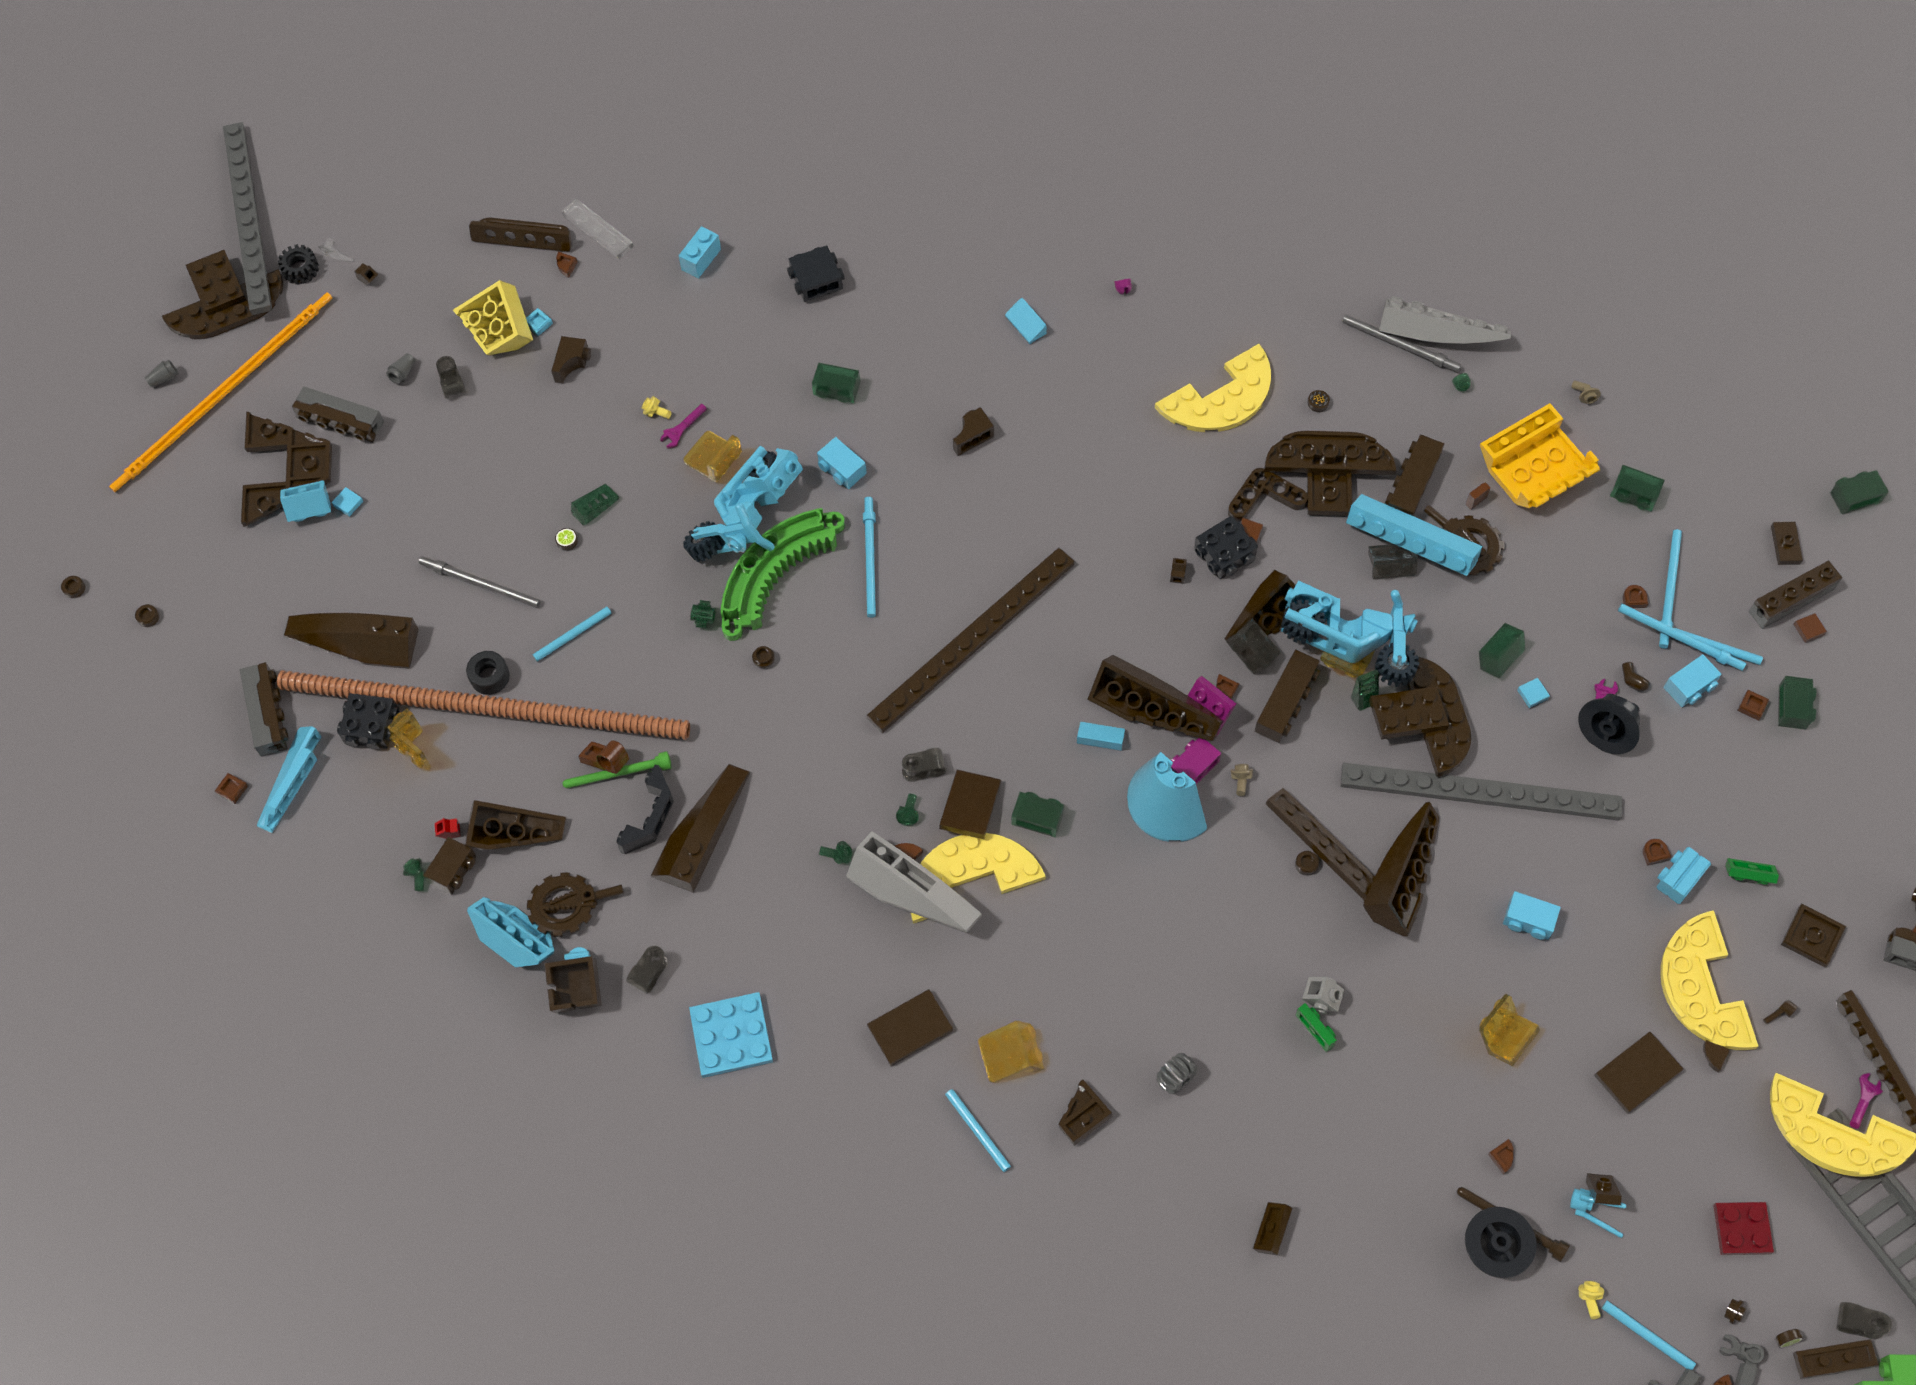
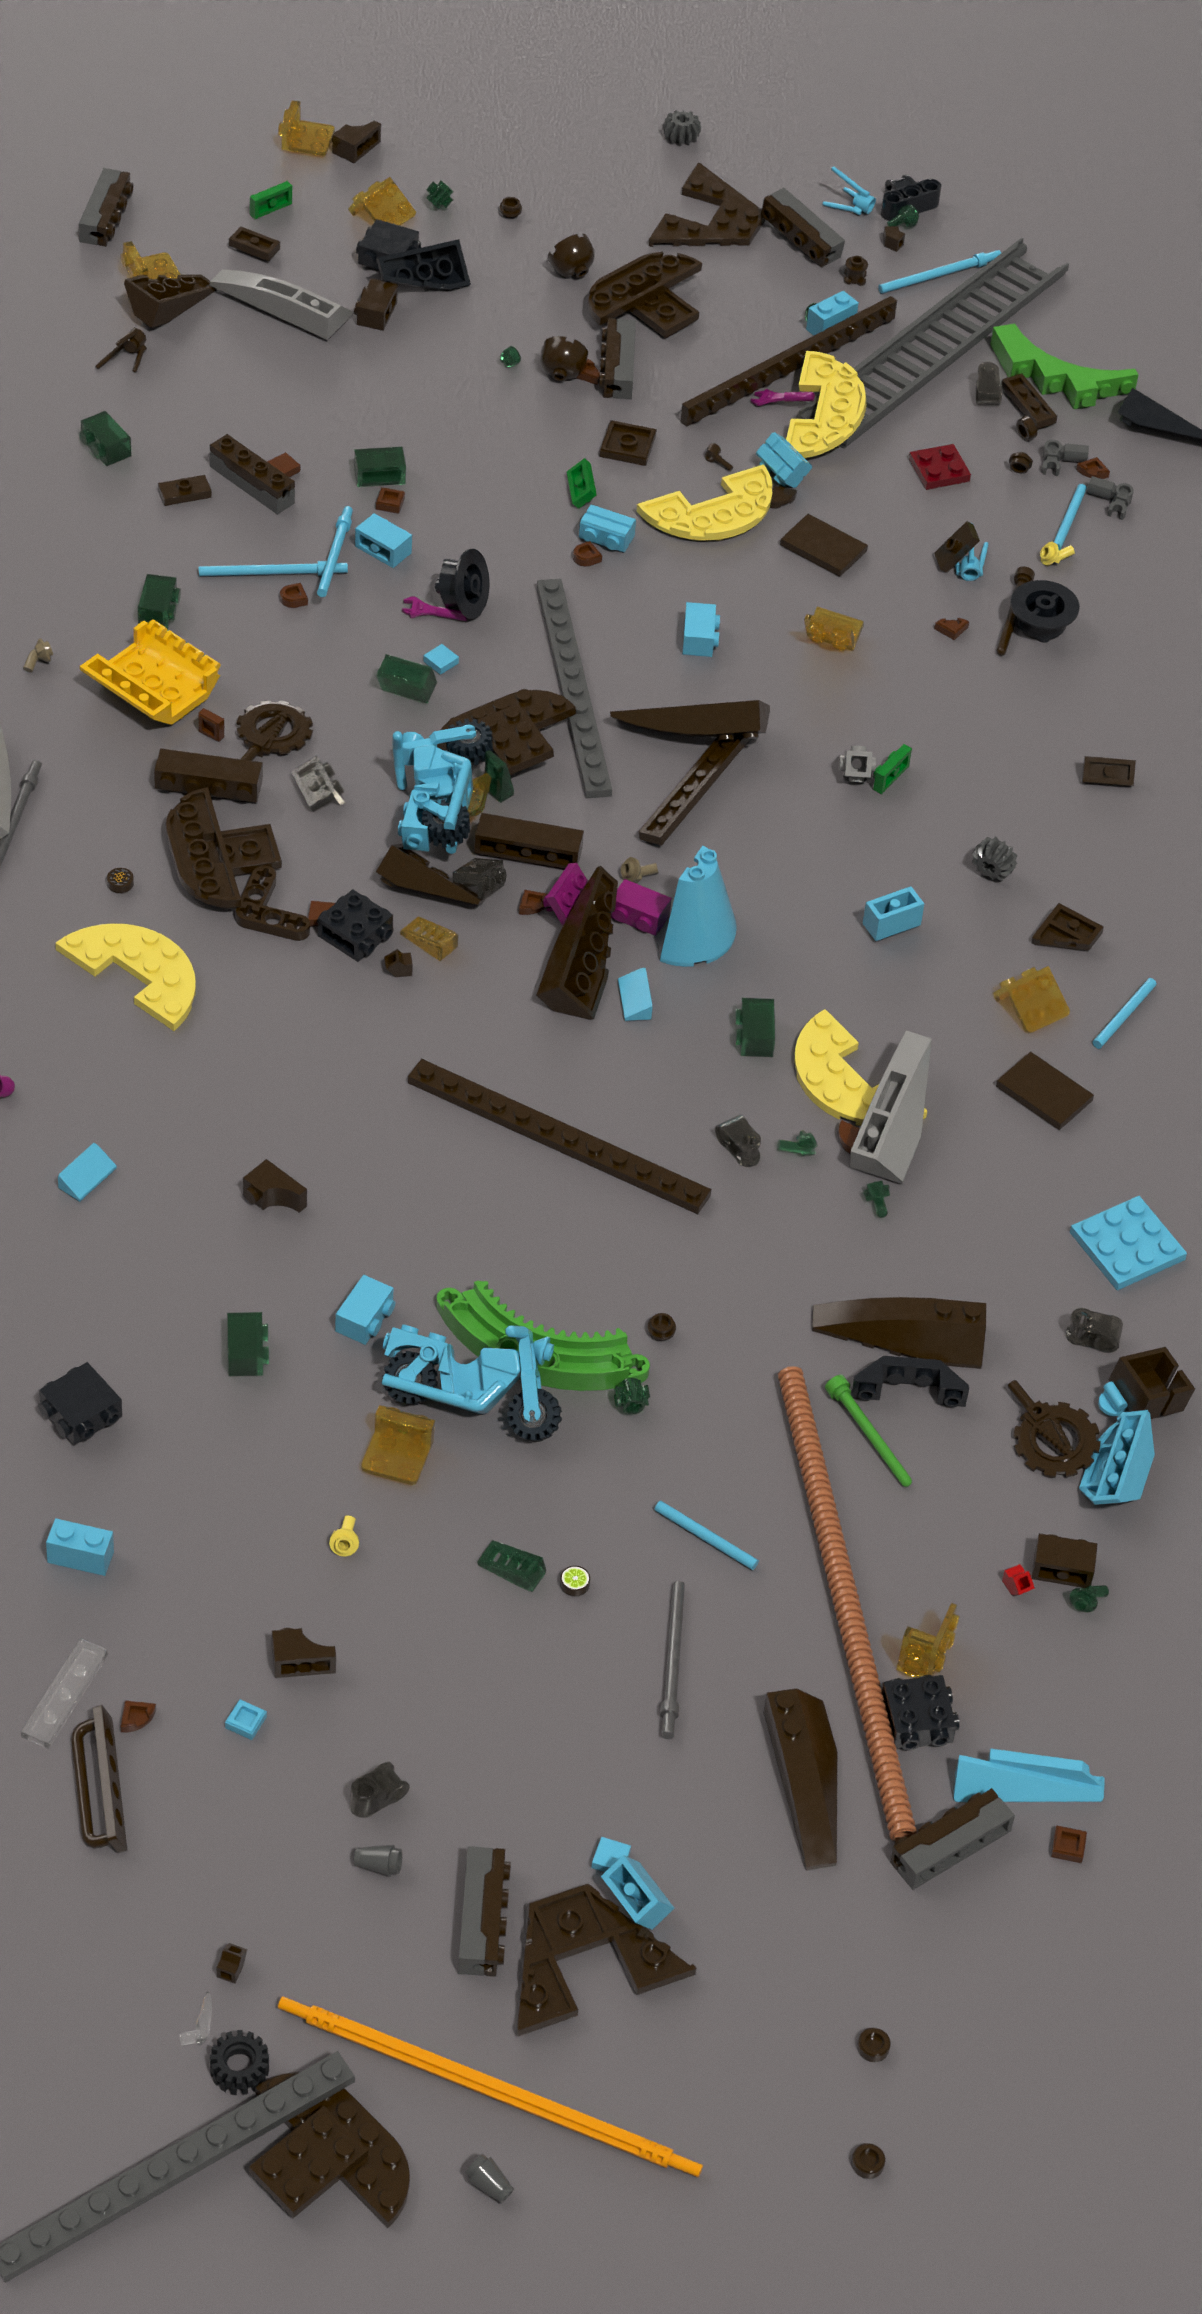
camera: 115 degrees left, 15 degrees down
(486, 660) = (799, 1617): black tyre -> none
(496, 319) = (267, 1759): light yellow wedge -> none
(503, 826) = (990, 1521): dark brown wedge -> none
(608, 757) = (862, 1442): reddish brown plate -> none
(676, 432) = (373, 1507): magenta piece -> none
(869, 519) = (432, 1267): medium azure bar -> none
(970, 804) = (770, 1087): dark brown tile -> none
(1132, 962) = (893, 913): none -> medium azure brick
(1195, 613) = (437, 949): none -> clear yellow slope
(1306, 863) = (712, 806): dark brown tile -> none
(1414, 534) = (288, 762): medium azure brick -> none
(1461, 382) = (56, 758): clear green hinge -> none
(1632, 679) = (395, 588): dark brown arm -> none
(1735, 652) = (331, 525): medium azure bar -> none
(1759, 1065) = (783, 460): none -> medium azure brick

